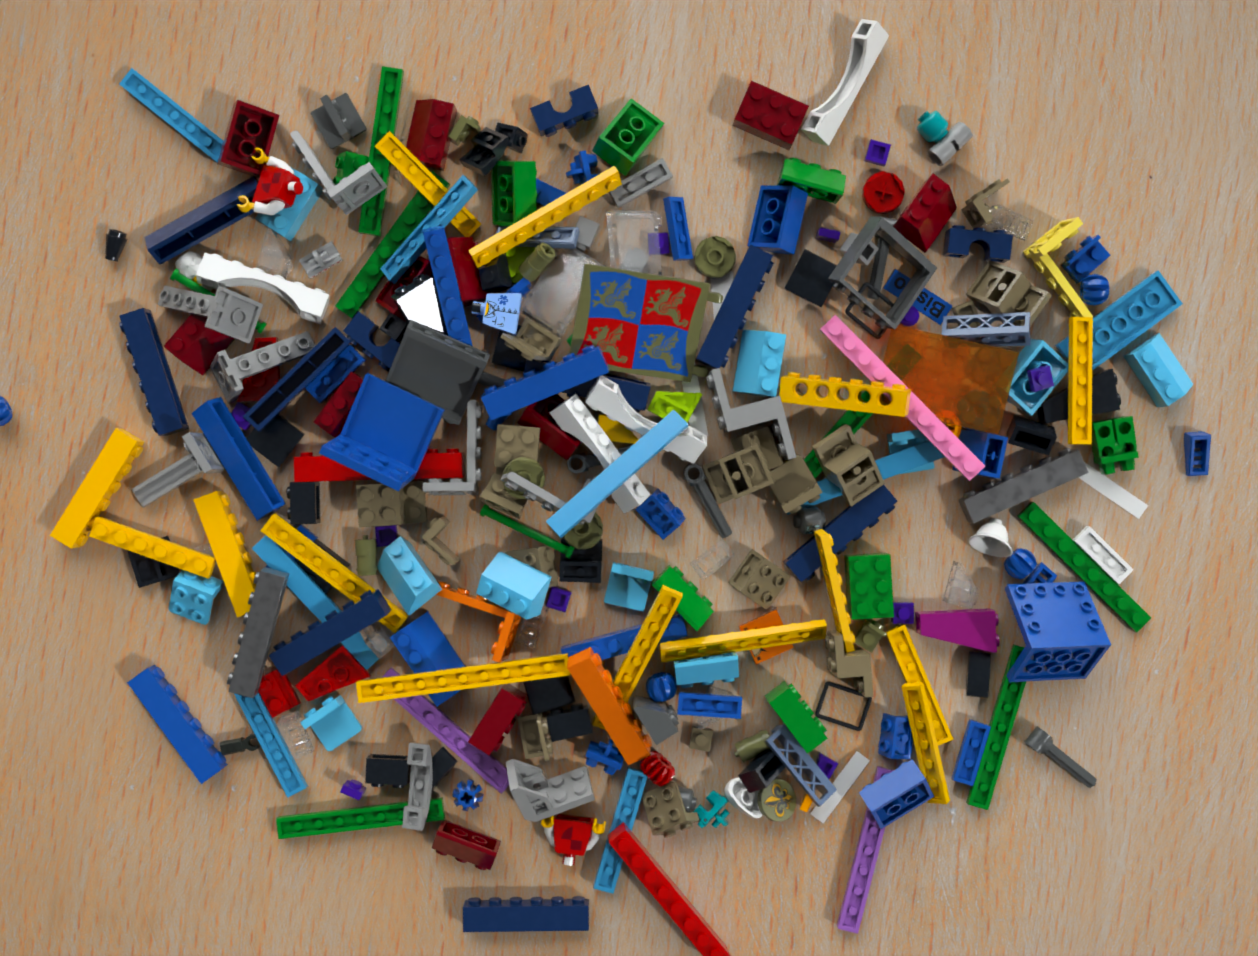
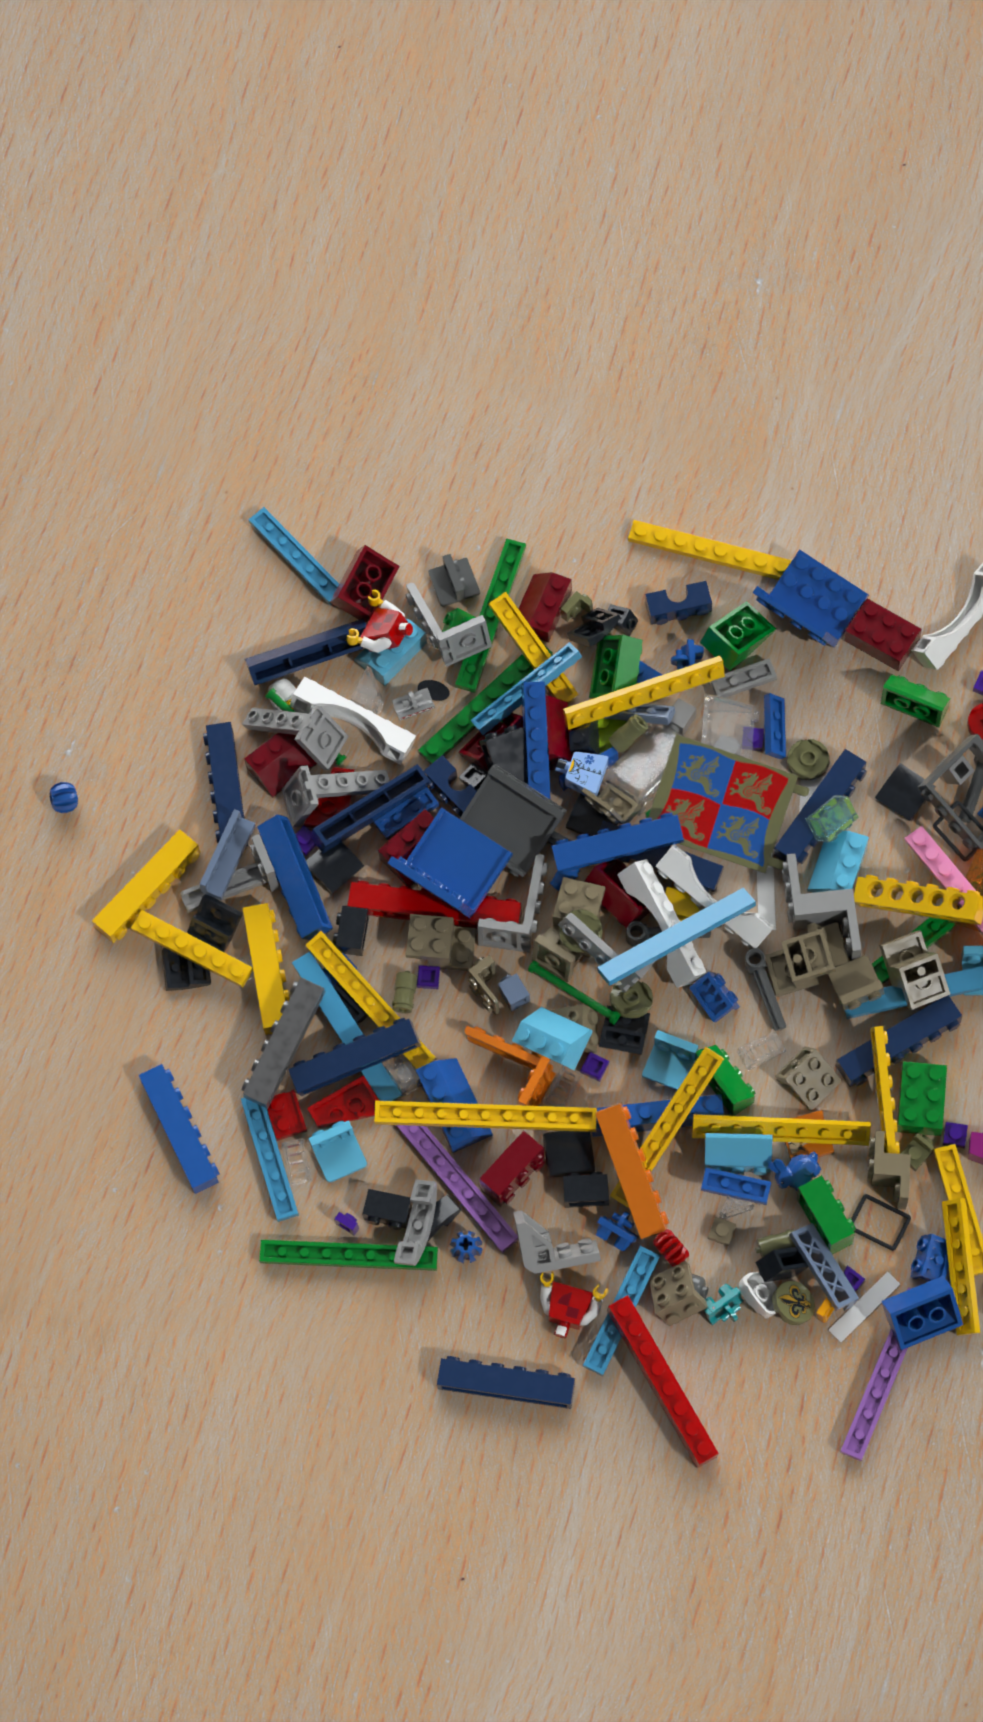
camera: 15 degrees right, 20 degrees down
(114, 244) = (212, 662): black cone -> none
(165, 451) = (227, 855): none -> sand blue fence
(170, 516) = (214, 922): none -> black slope
(194, 596) = (220, 1005): medium azure bracket -> none
(238, 745) = (236, 1161): pearl dark grey bar -> none
(341, 238) = (436, 689): none -> black sticker
(407, 575) = (444, 1012): medium azure slope -> none
(466, 845) = (455, 1297): dark red slope -> none
(469, 539) = (513, 992): none -> sand blue brick
(534, 736) = (546, 1196): dark tan bracket -> none
(607, 51) = (708, 550): none -> yellow plate
(657, 718) = (678, 1187): dark grey slope -> none
(661, 687) = (688, 1167): blue piece -> none
(681, 402) = (758, 891): lime wing -> none
(697, 90) = (814, 599): none -> blue bracket
(748, 322) = (832, 818): none -> clear light blue brick
(763, 677) = (798, 1171): none -> blue animal
(778, 219) = (878, 730): blue slope -> none
(809, 520) = (865, 1021): dark grey head -> none
(828, 235) = (925, 753): dark purple tile -> none

